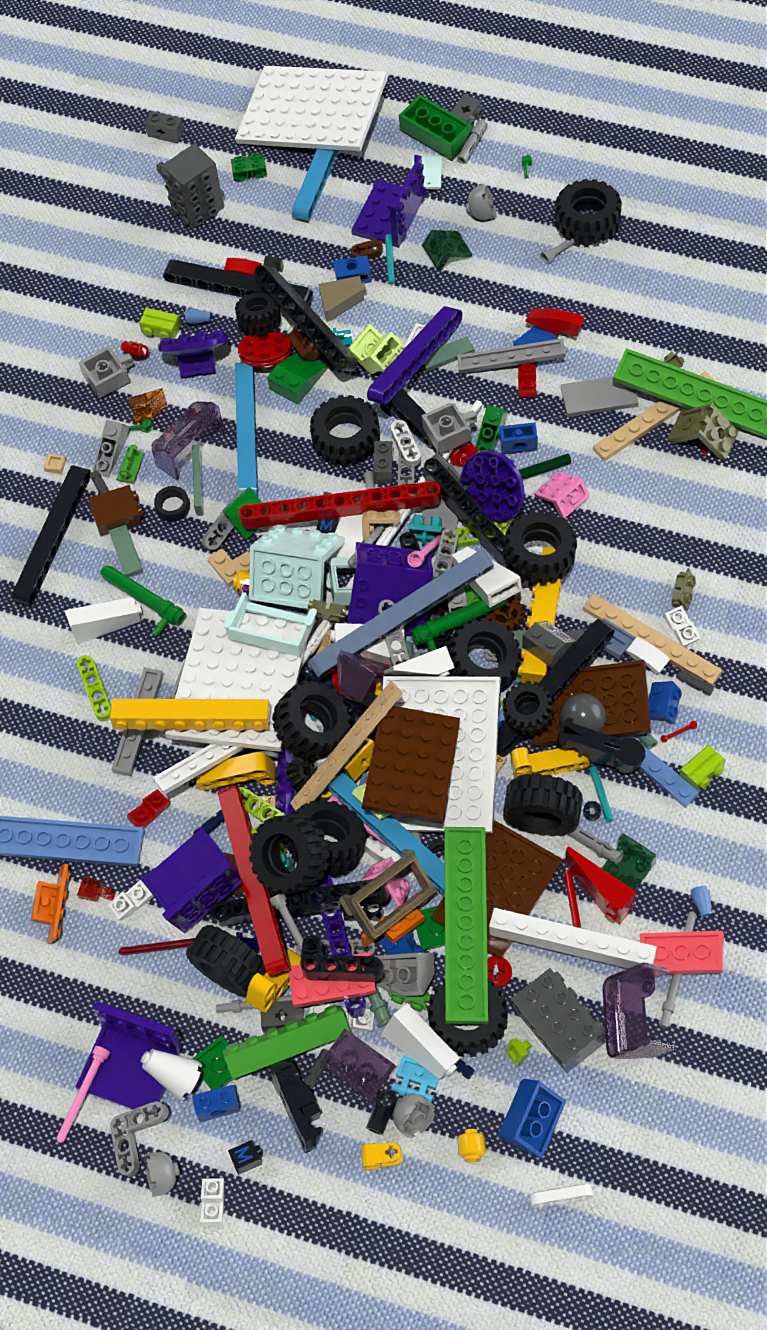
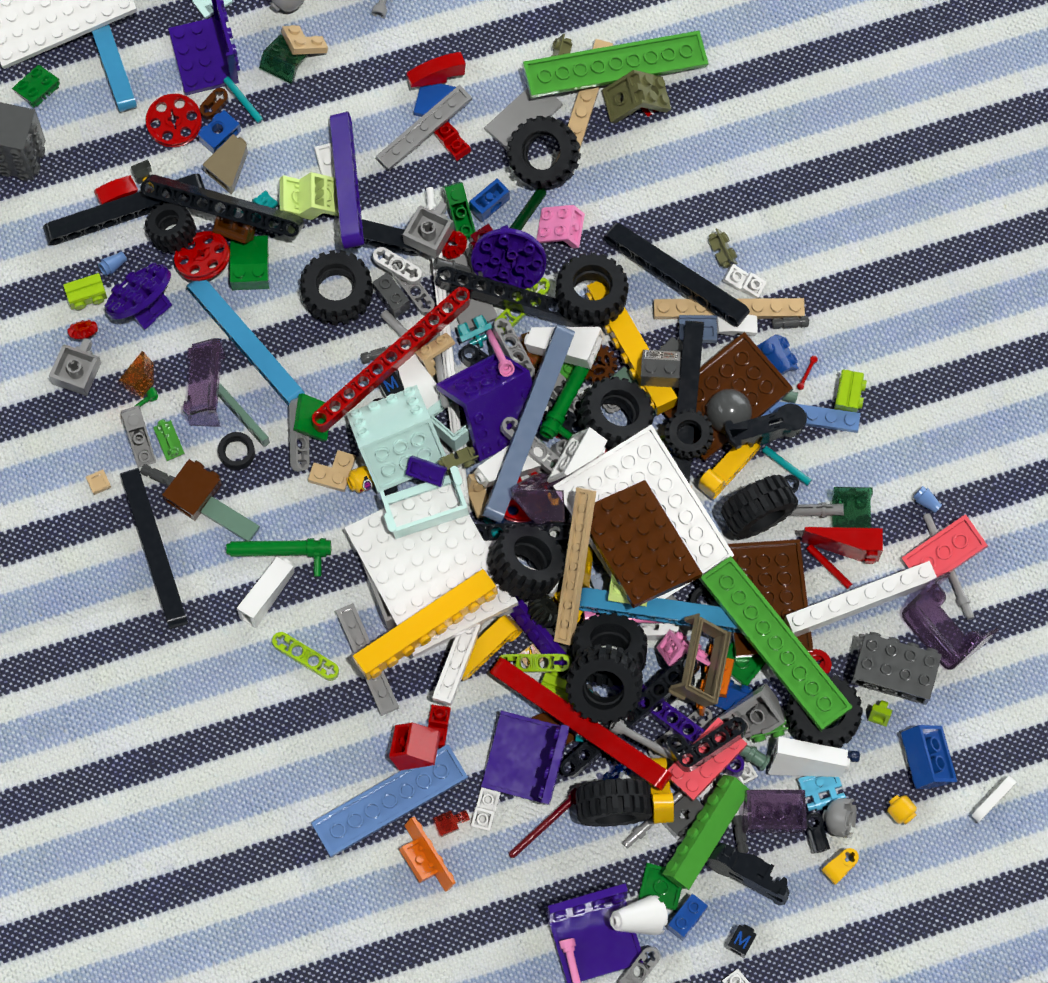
camera: 45 degrees left, 10 degrees up
(111, 808) = (414, 746): none -> red slope
(212, 823) = (499, 702): dark blue axle -> none
(293, 601) = (426, 471): none -> dark purple plate
(323, 240) = (166, 120): none -> red wedge
(448, 353) = (367, 154): sand green tile -> none
(465, 243) = (303, 45): none -> tan plate
(577, 409) = (523, 139): none -> black tyre
(626, 585) = (676, 274): none -> black beam

